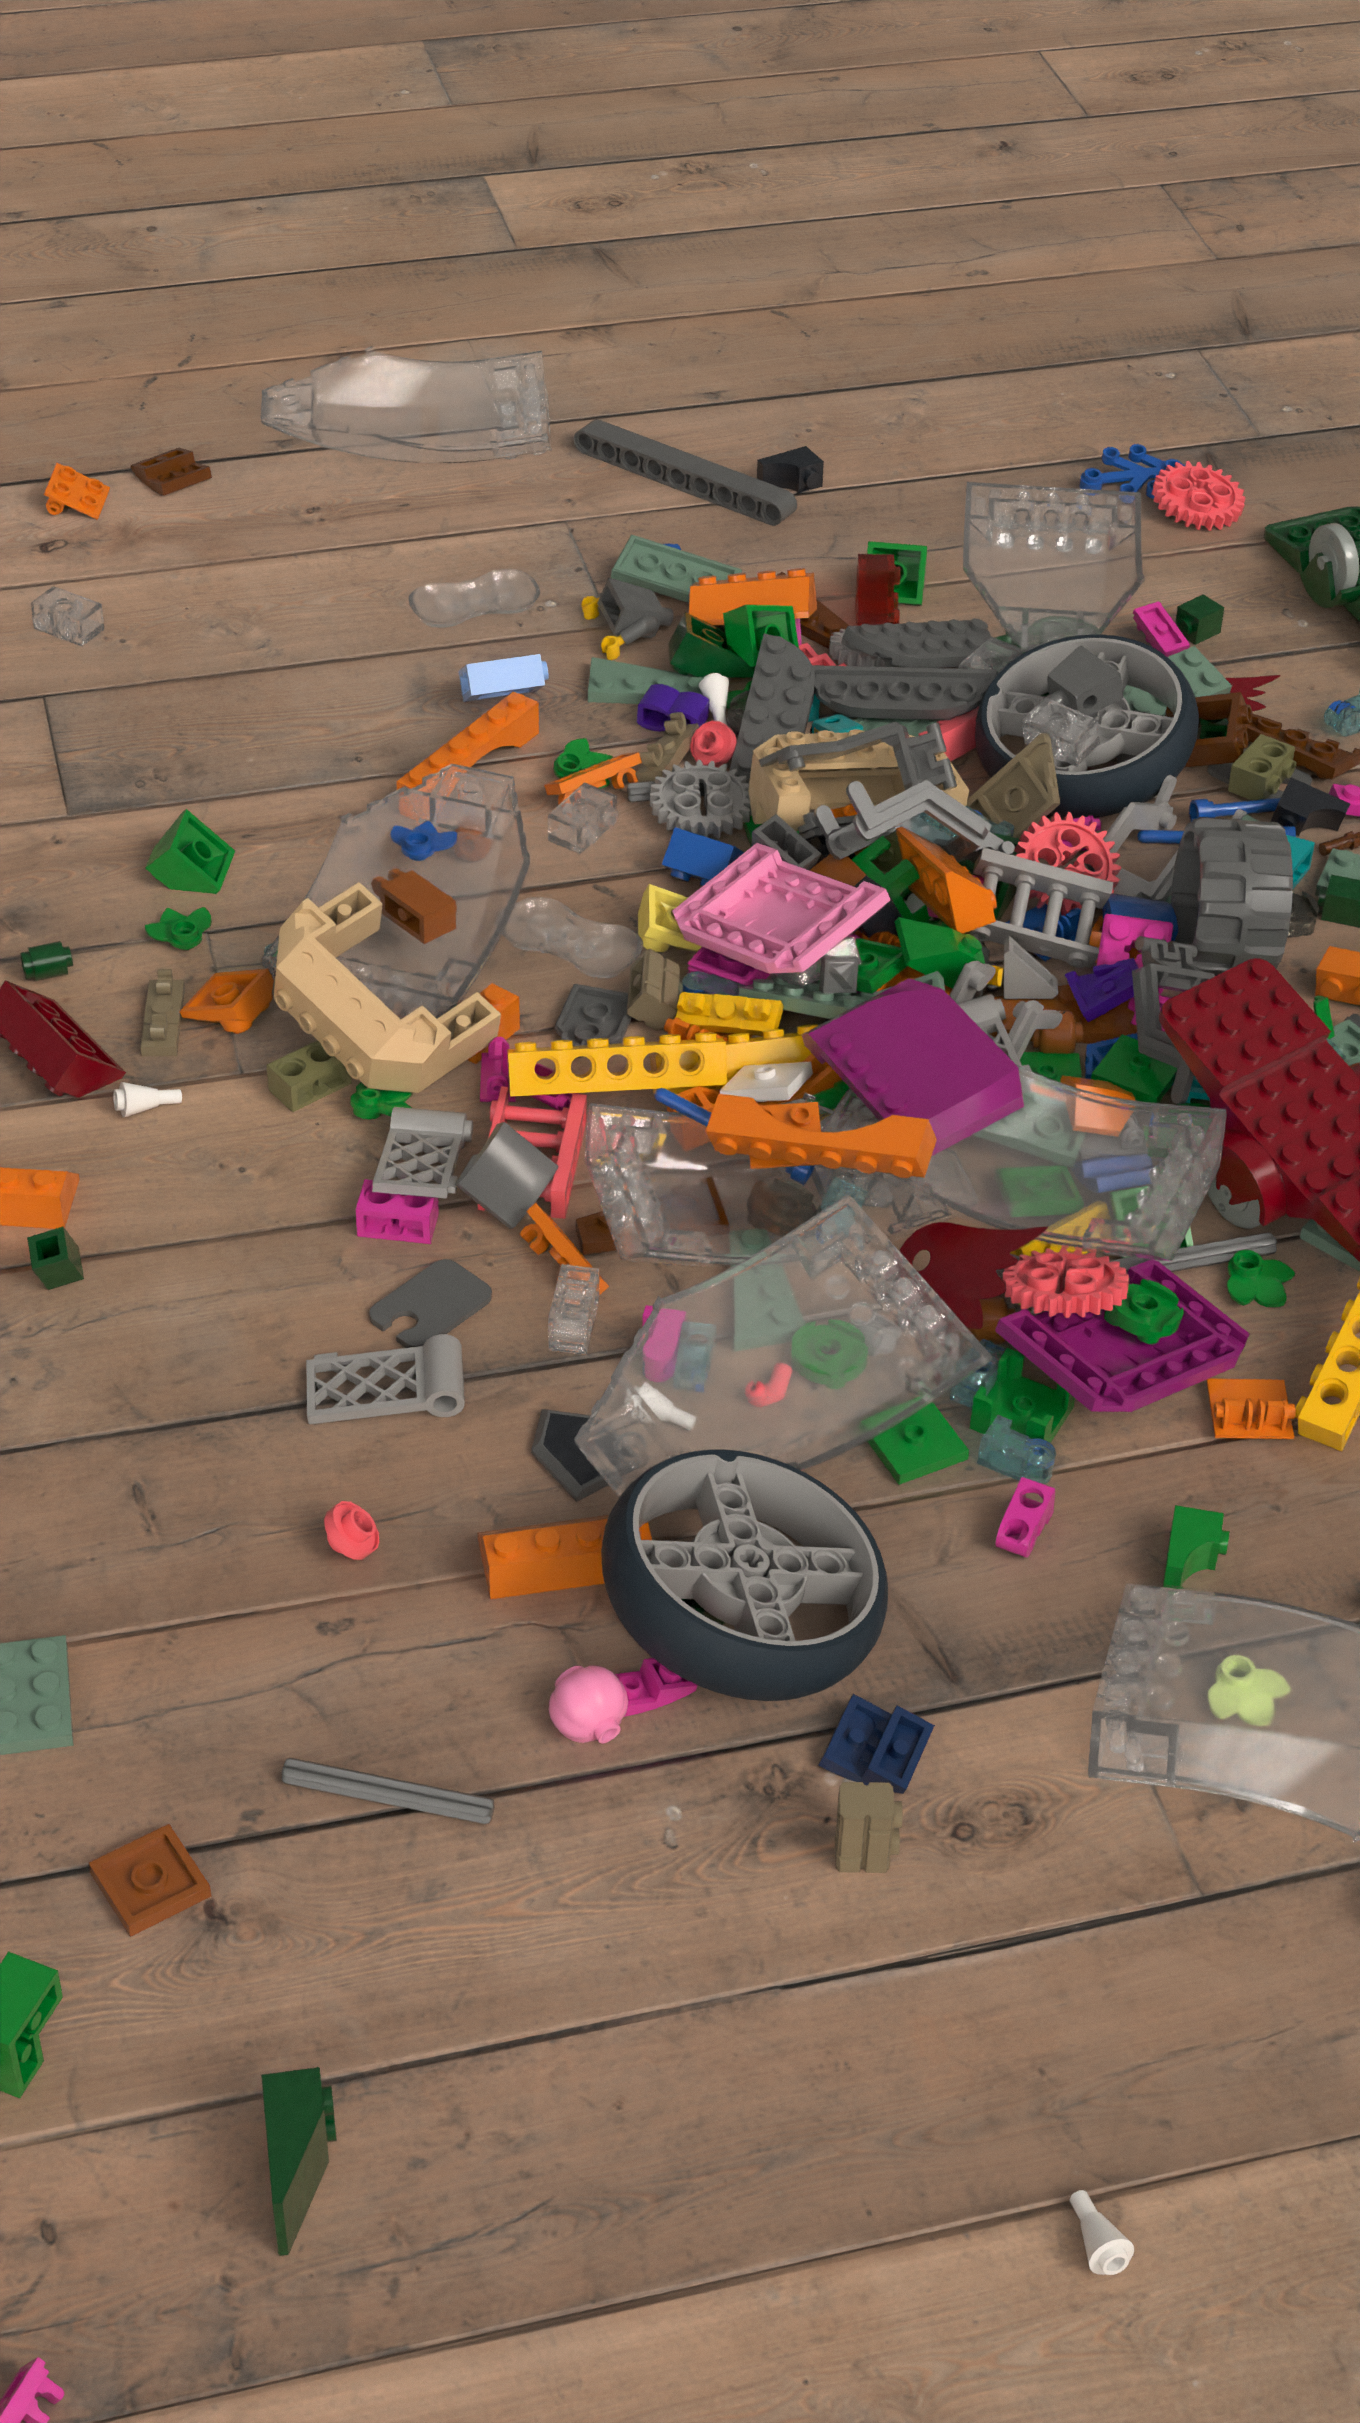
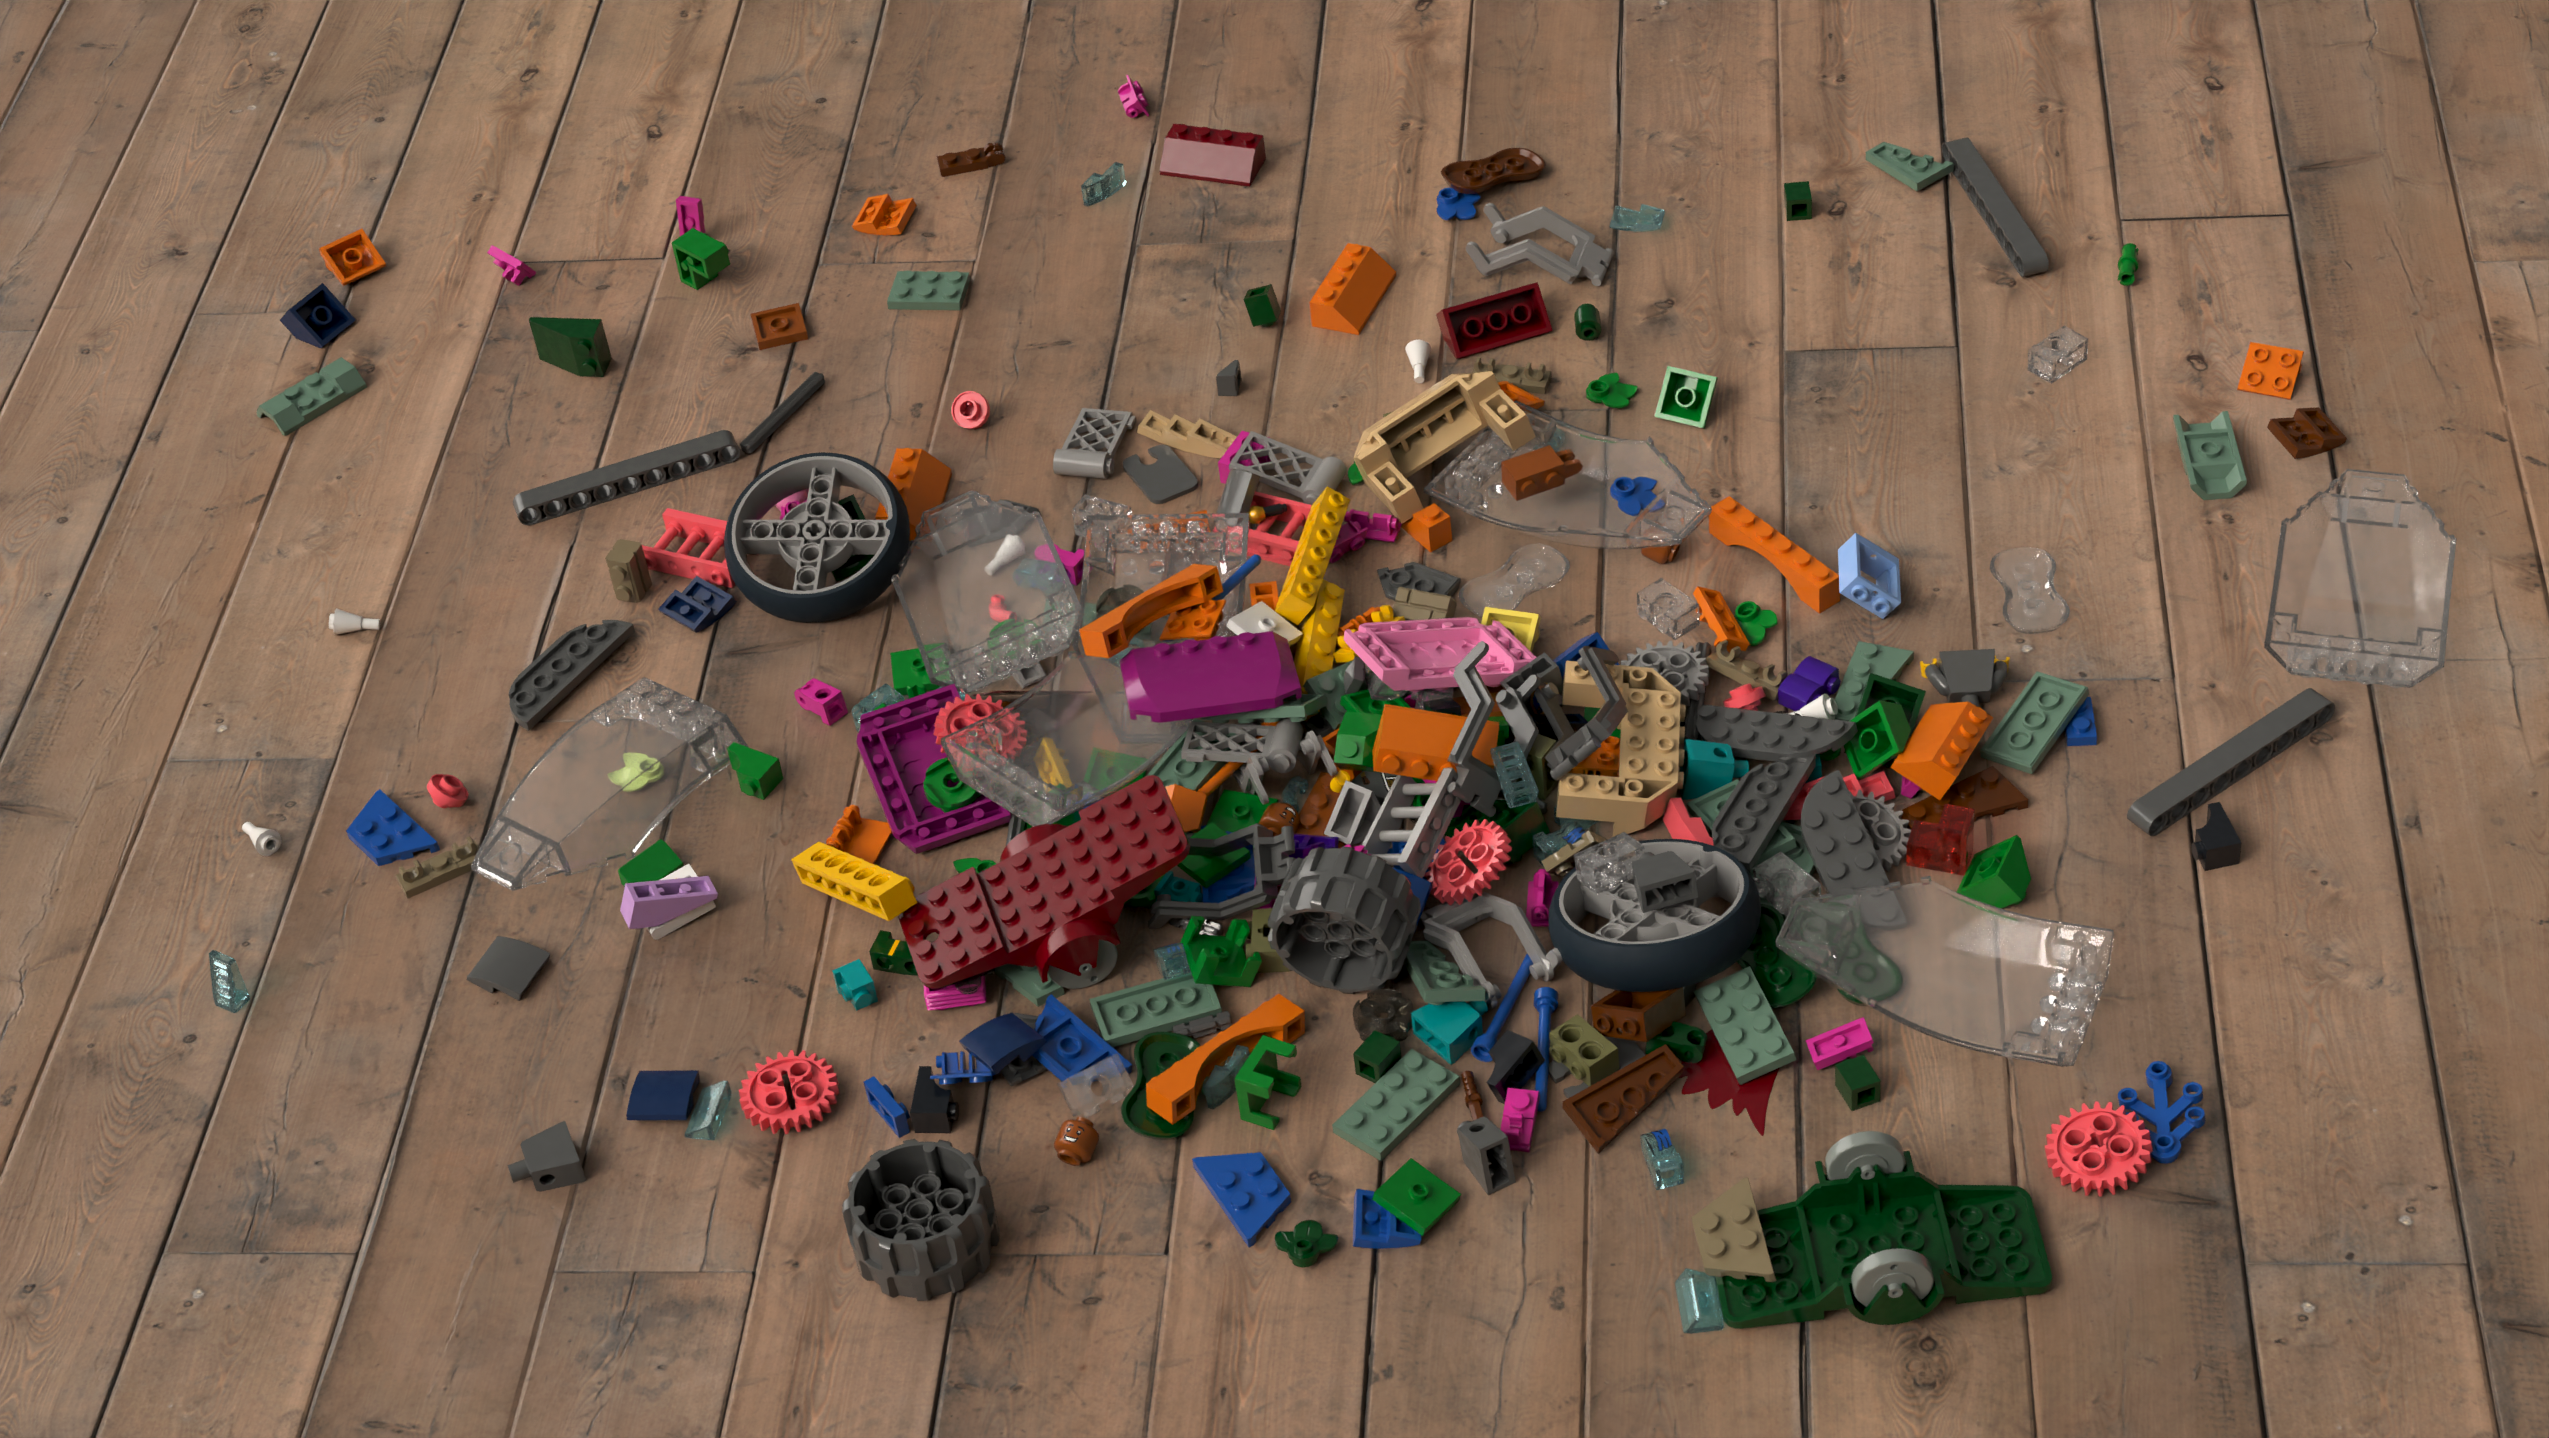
camera: 115 degrees right, 0 degrees up
(218, 1268) = (1229, 380): none -> dark grey slope
(223, 513) = (2211, 457): none -> sand green piece
(351, 1283) = (1184, 435): none -> tan slope
(618, 1953) = (626, 477): none -> dark grey beam
(720, 1791) = (694, 529): none -> coral fence
(1086, 1863) = (563, 668): none -> dark grey plate

